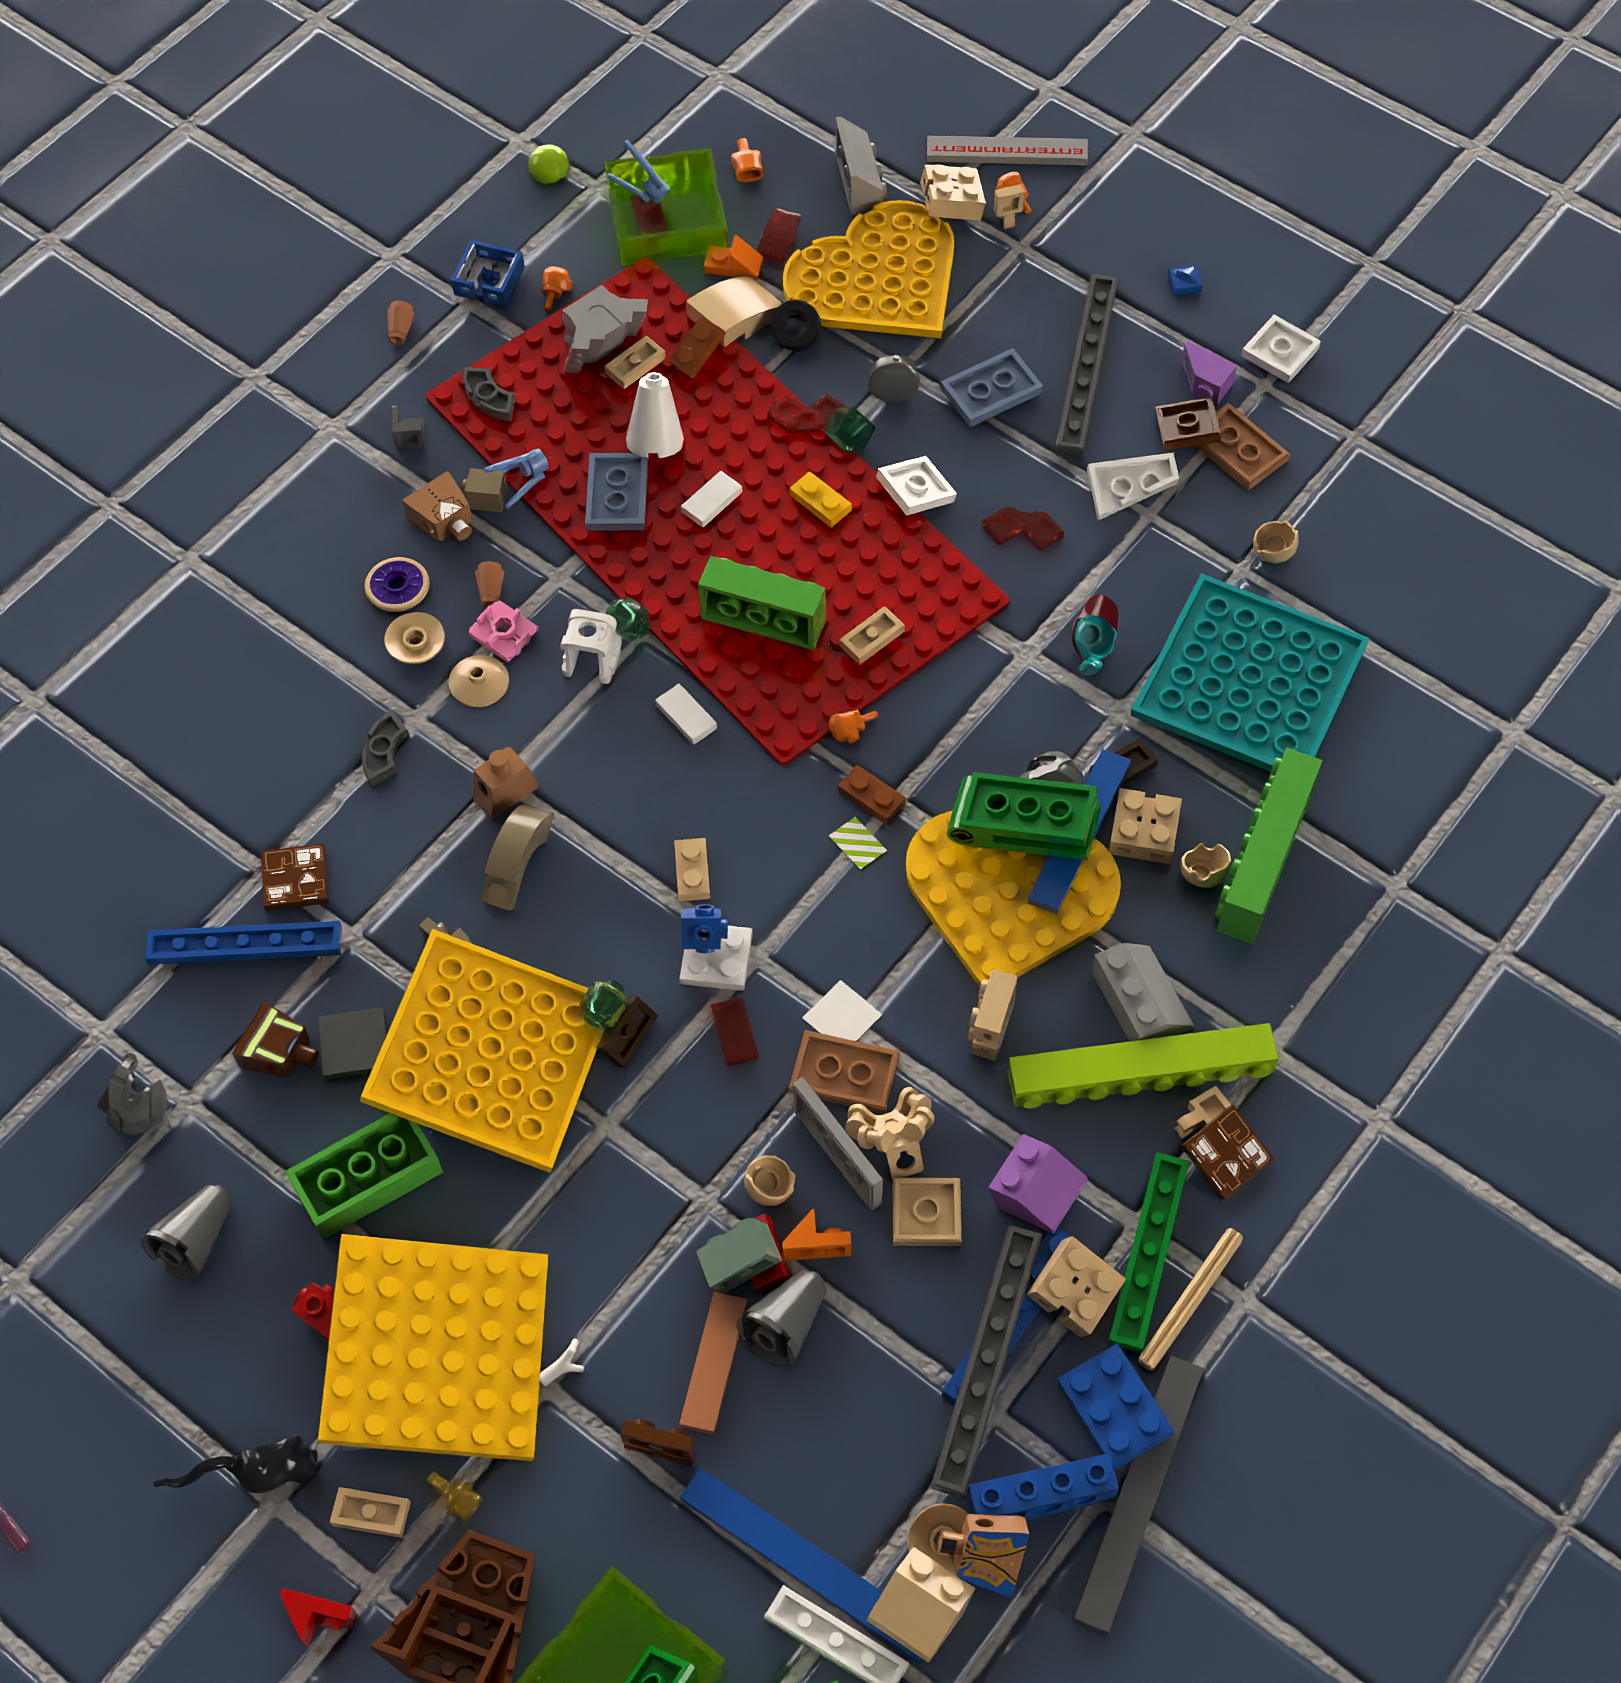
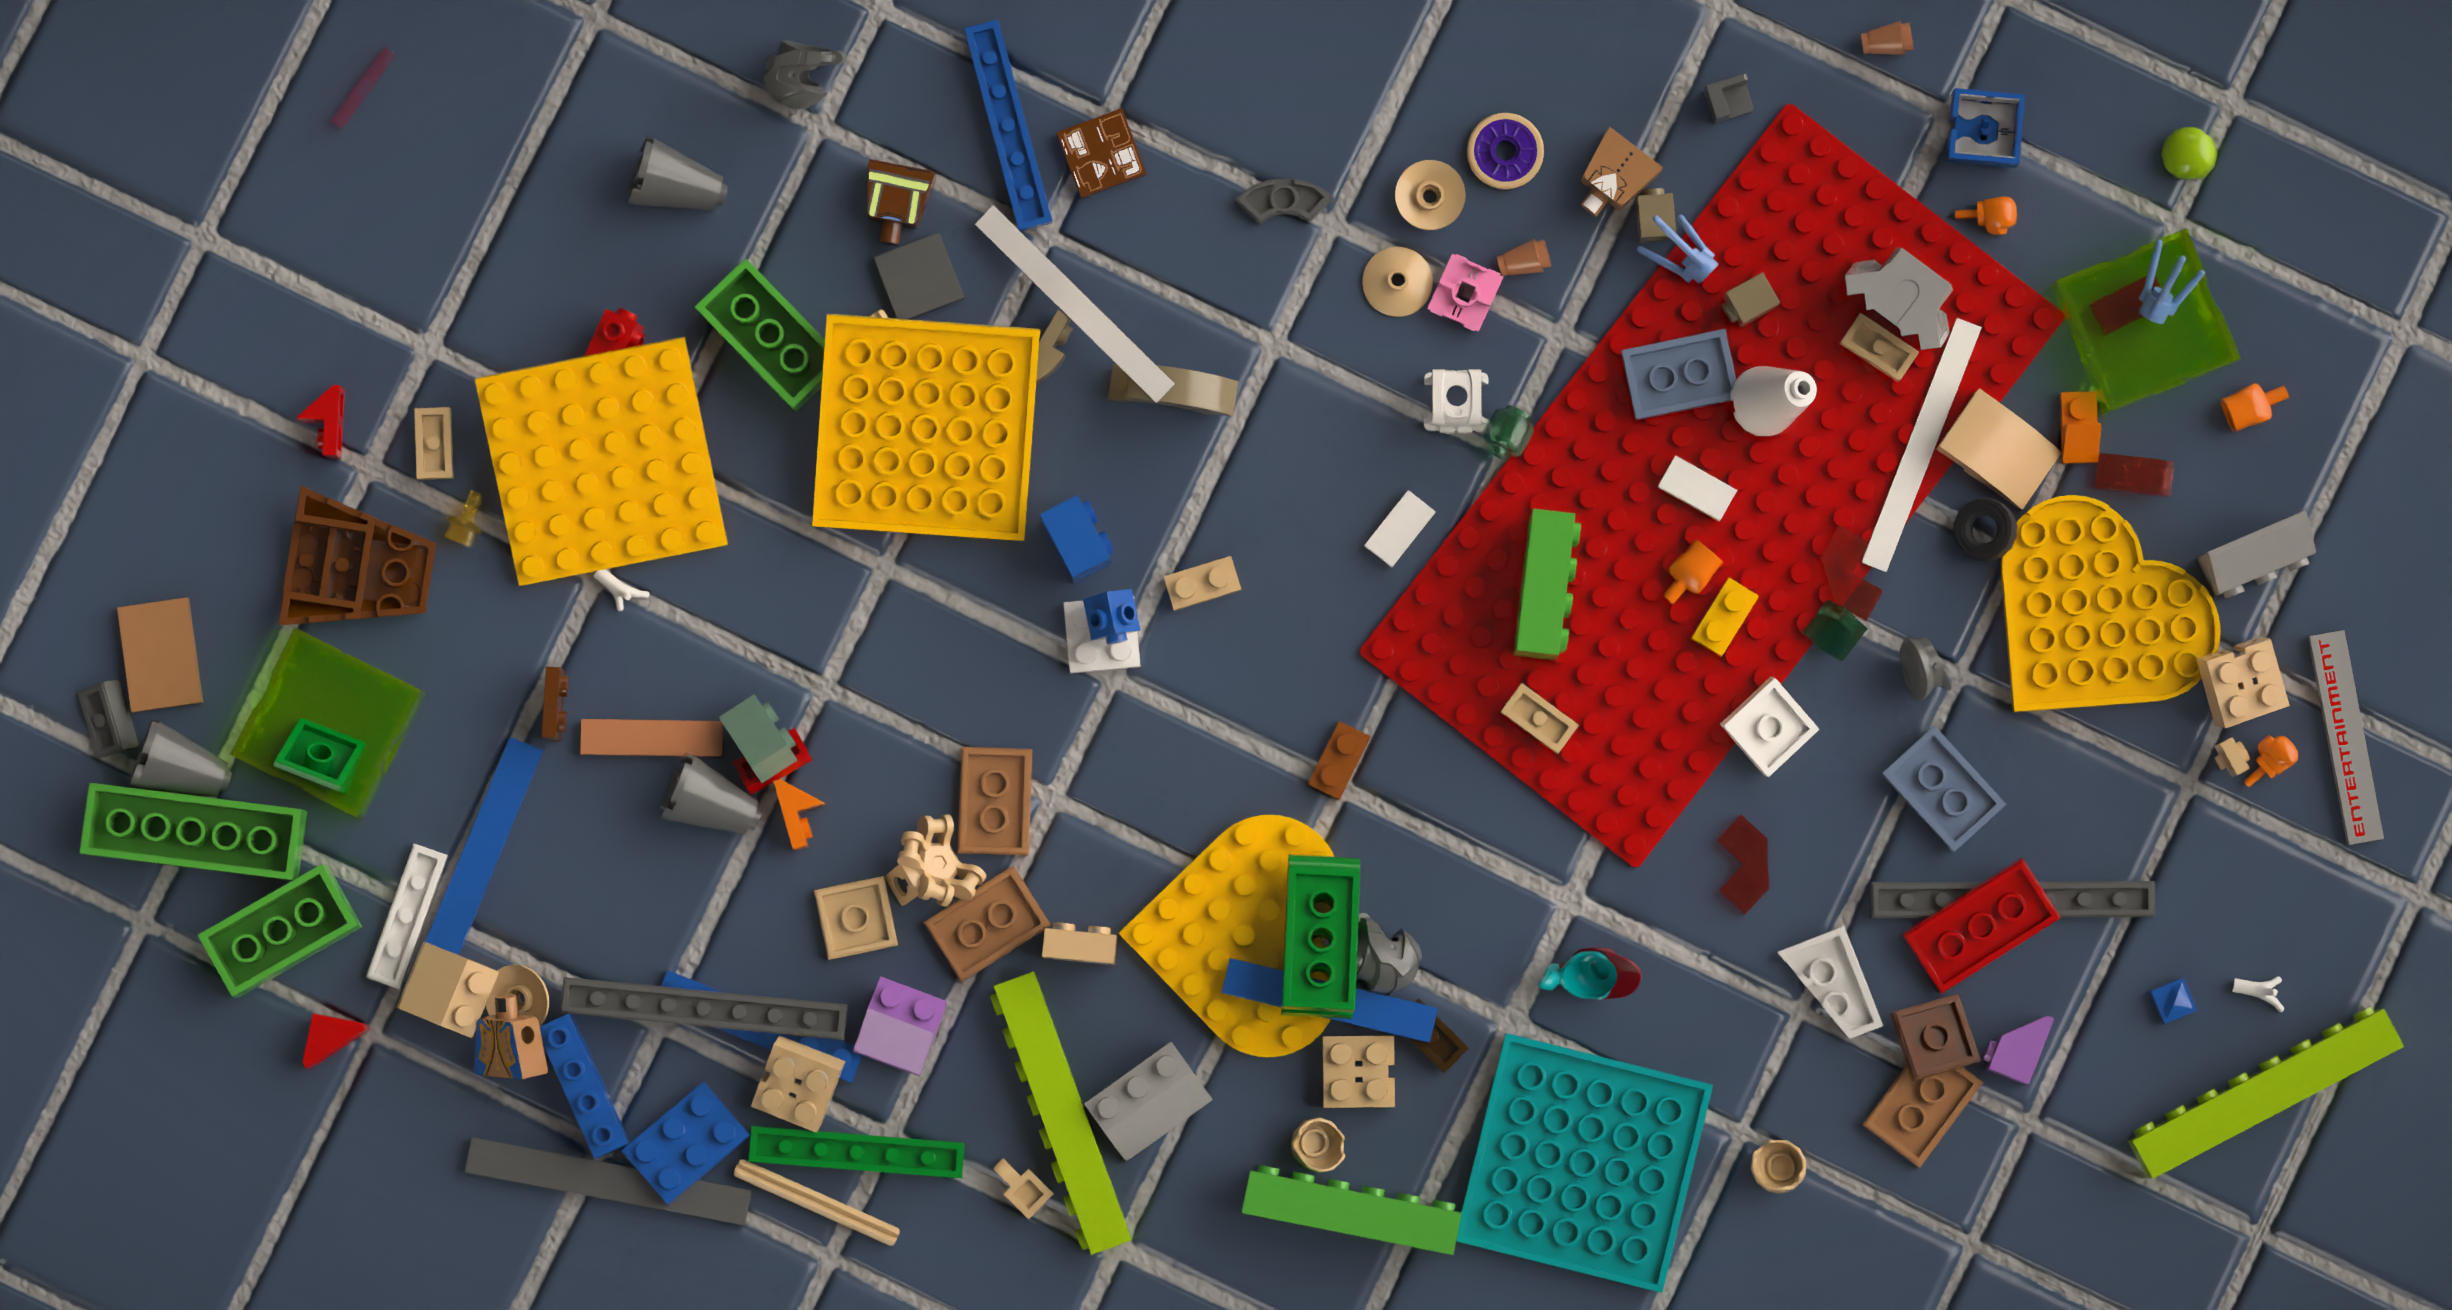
camera: 75 degrees right, 25 degrees up
(259, 1467) = (451, 326): black animal -> none
(417, 910) = (1075, 304): none -> white sticker
(487, 395) = (1795, 178): dark grey tile -> none
(502, 782) = (1260, 350): medium nougat torso -> none
(572, 433) = (1750, 300): none -> dark tan brick
(603, 1004) = (1004, 532): clear green head -> none
(624, 1038) = (988, 562): dark brown plate -> none
(626, 947) = (1076, 538): none -> blue brick
(697, 347) = (1914, 418): dark orange plate -> none
(729, 360) = (1921, 444): none -> white sticker
(734, 1031) = (1017, 674): clear red tile -> none
(769, 1180) = (849, 750): tan hair -> none
(776, 512) = (1692, 570): none -> orange piece
(837, 1144) = (897, 811): light grey tile -> none
(842, 1013) = (1063, 784): white sticker -> none
(849, 724) = (1419, 714): orange piece -> none
(857, 843) = (1277, 757): sticker -> none
(958, 1099) = (988, 925): none -> medium nougat tile
(1104, 380) = (1981, 925): none -> red tile
(1186, 228) = (2259, 989): none -> white bar
(1227, 1152) = (980, 1216): reddish brown tile -> none
(1267, 235) = (2265, 1092): none -> lime brick
(1281, 348) = (2082, 1135): white plate -> none

